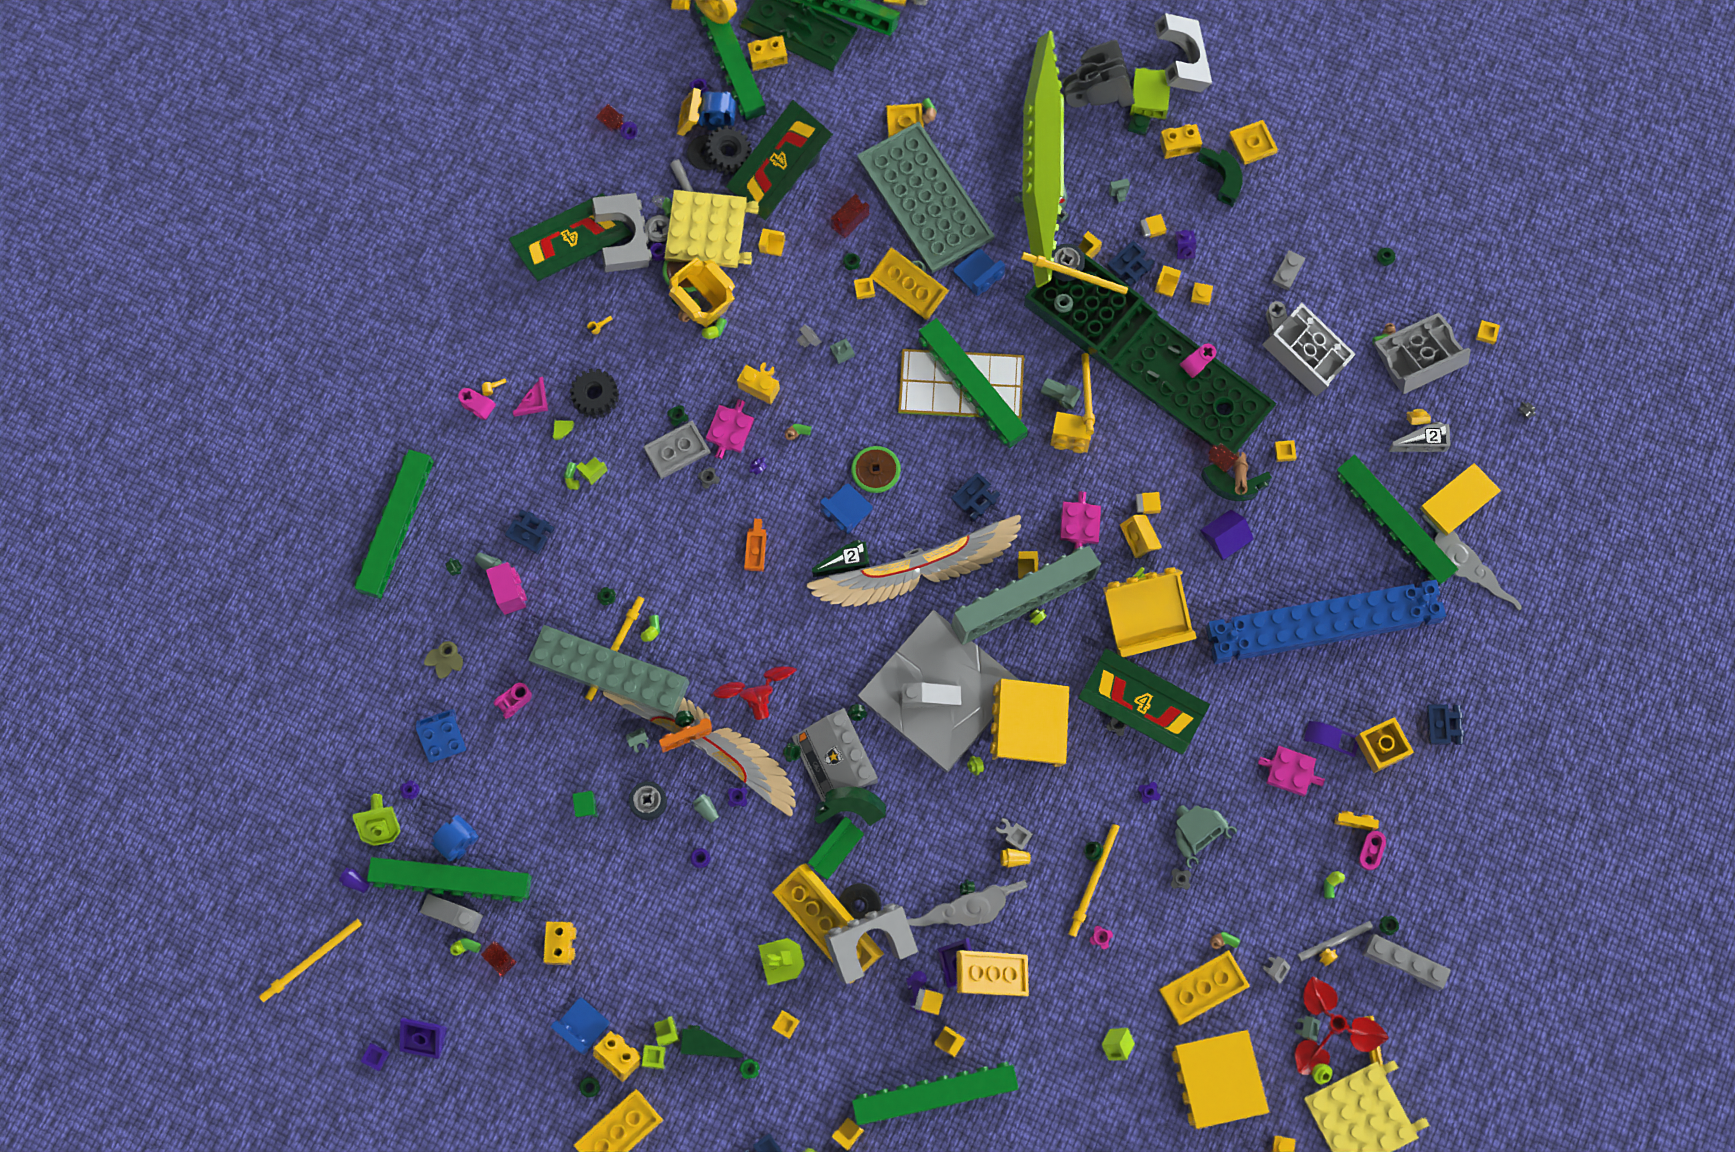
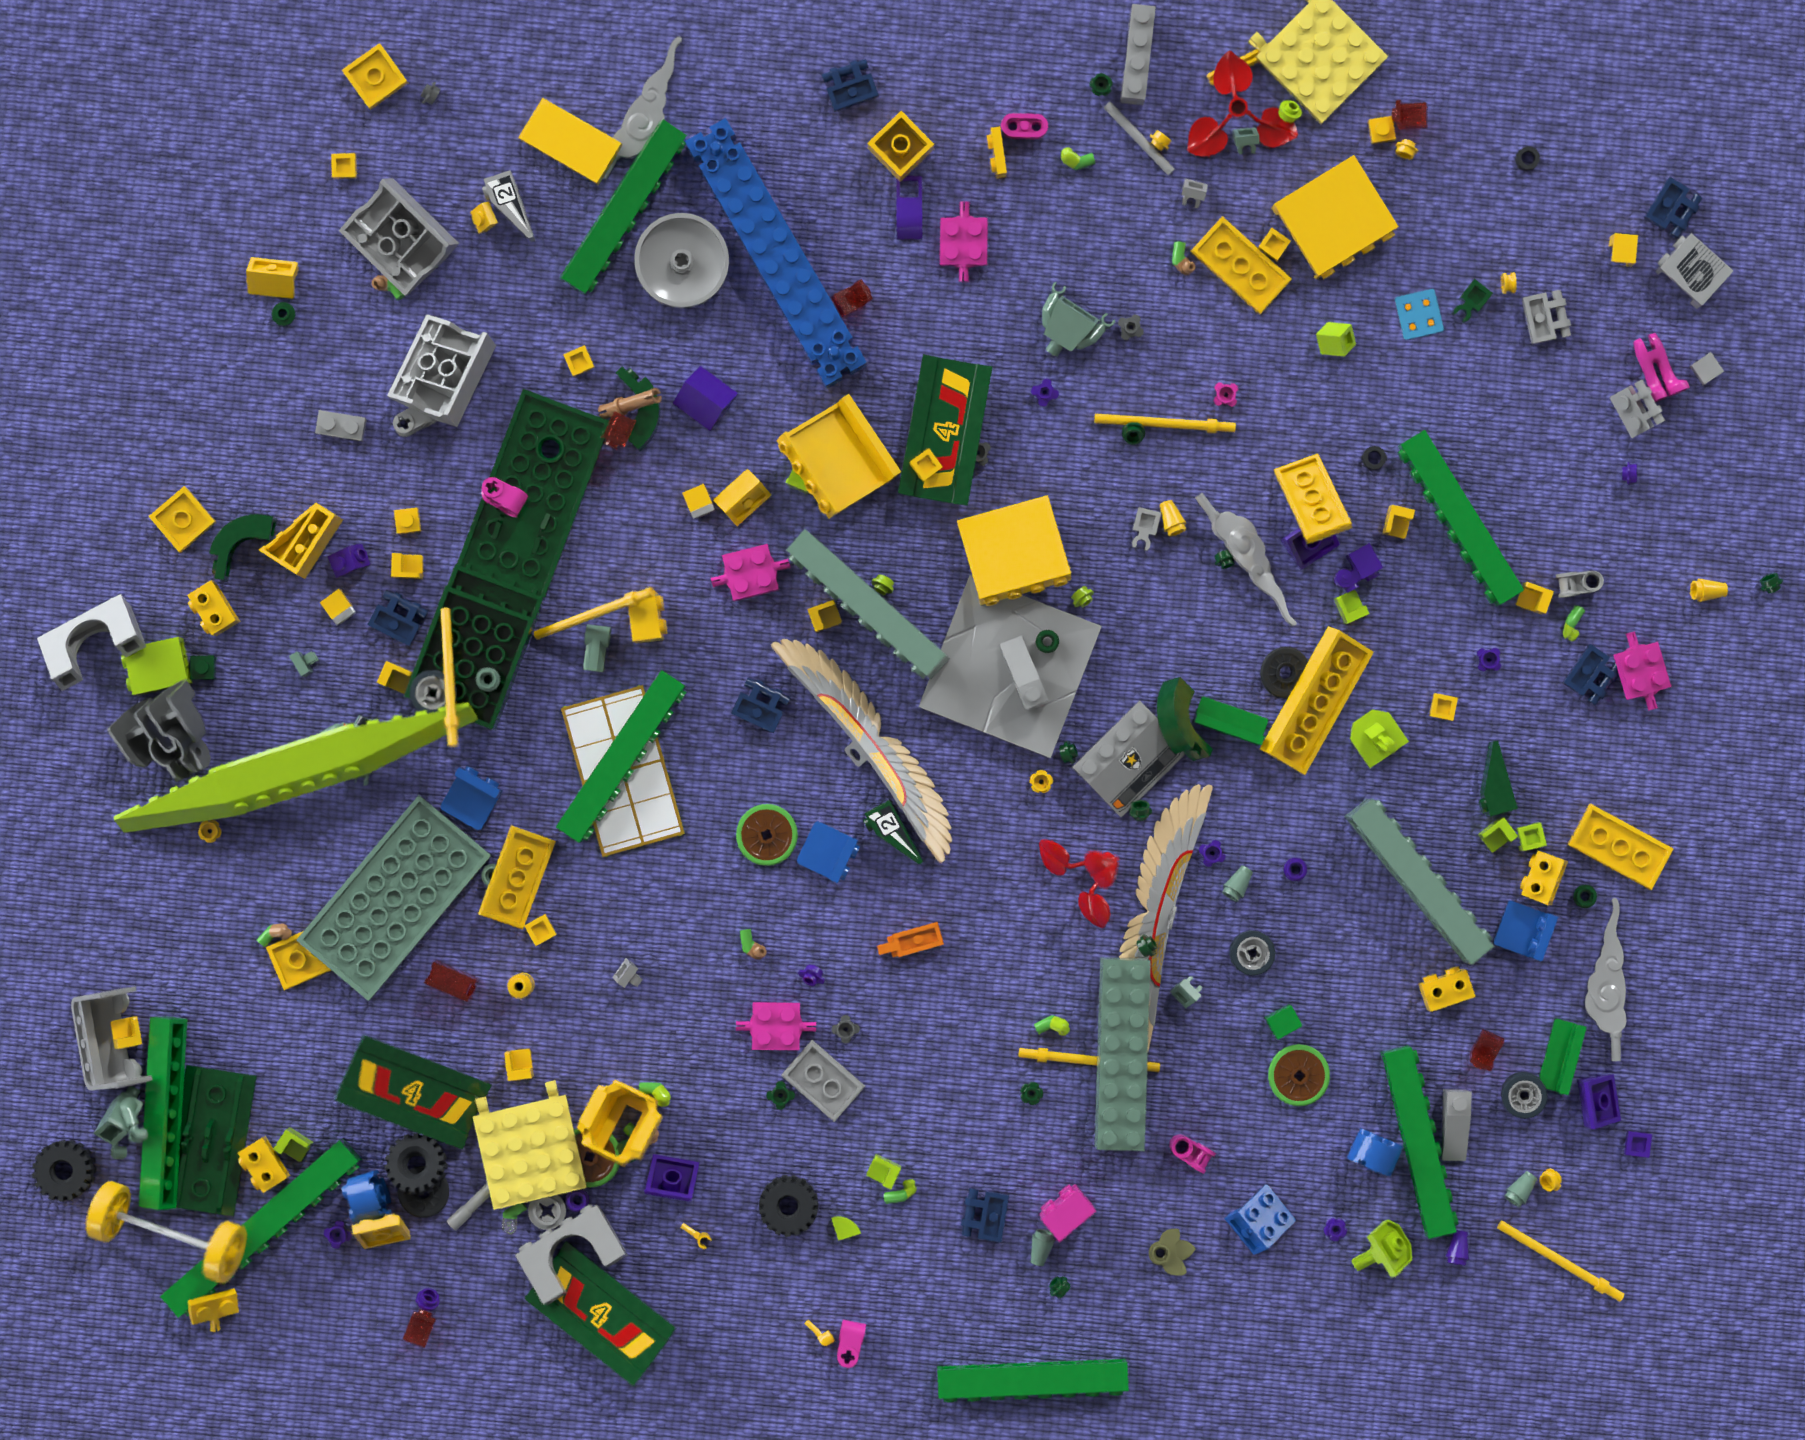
camera: 115 degrees left, 15 degrees up
(376, 974) = (1550, 1180): none -> yellow plate
(379, 948) = (1521, 1189): none -> sand green cone
(441, 979) = (1529, 1106): none -> wheel
(463, 945) = (1484, 1097): arm -> none
(470, 1019) = (1562, 1055): none -> green panel
(509, 1079) = (1608, 988): none -> light grey piece
(534, 400) = (820, 1276): dark pink tile -> none
(545, 815) = (1310, 1086): none -> reddish brown wheel
(646, 319) = (672, 1178): none -> dark purple slope
(652, 950) = (1419, 881): none -> sand green brick
(683, 737) = (1165, 936): orange plate -> none
(744, 1069) = (1510, 729): green plate -> none
(759, 383) = (708, 1012): yellow brick -> none
(775, 78) = (293, 1144): none -> lime panel
(810, 1072) = (1495, 659): none -> dark purple plate
(828, 259) = (527, 981): none -> yellow head
(841, 680) = (1047, 781): none -> yellow plate
(842, 351) = (630, 928): sand green tile -> none
(844, 940) = (1336, 671): light grey arch -> none
(851, 257) = (510, 964): dark green plate -> none
(893, 977) = (1350, 607): none -> lime panel
(929, 1001) = (1367, 557): yellow piece -> none
(949, 716) = (1047, 633): none -> dark green plate
(1017, 1041) = (1380, 451): none -> black piece
(1018, 88) = (203, 831): none -> yellow plate
(1117, 1124) = (1419, 314): none -> dark azure sticker
(1121, 675) = (925, 464): none -> yellow plate
(1209, 216) = (304, 540): none -> yellow wedge
(1213, 1020) = (1274, 244): none -> yellow plate
(1271, 668) = (852, 298): none -> clear red bracket
(1341, 548) = (681, 260): none -> light grey dish
(1416, 256) = (271, 277): none -> yellow panel
(1551, 375) = (375, 76): none -> yellow plate

